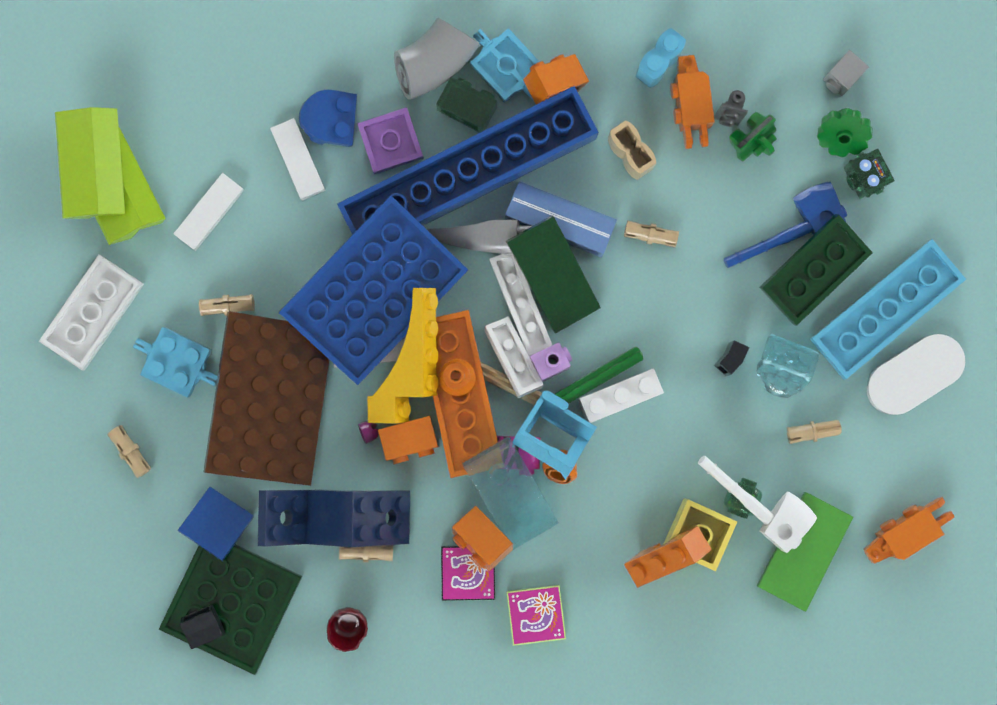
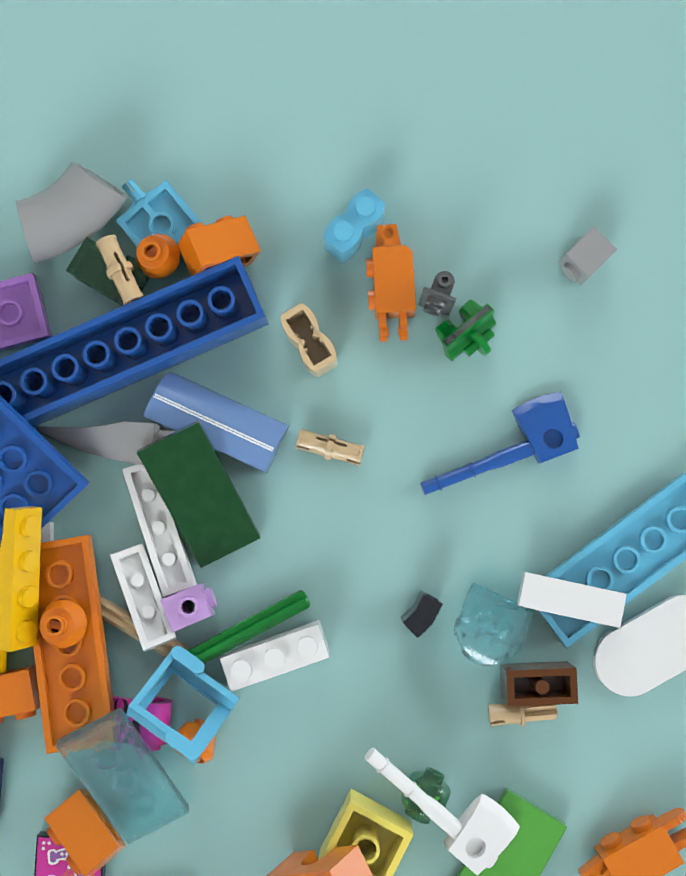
camera: 15 degrees right, 0 degrees up
(481, 101) = (119, 269): none -> tan pin
(501, 92) = (158, 256): none -> orange cone
(816, 269) = (536, 504): dark green plate -> none
(825, 405) = (539, 683): none -> reddish brown brick
(844, 132) = (582, 331): green plant -> none
(847, 340) = (571, 599): none -> white tile
(868, 174) = (609, 385): clear green head -> none

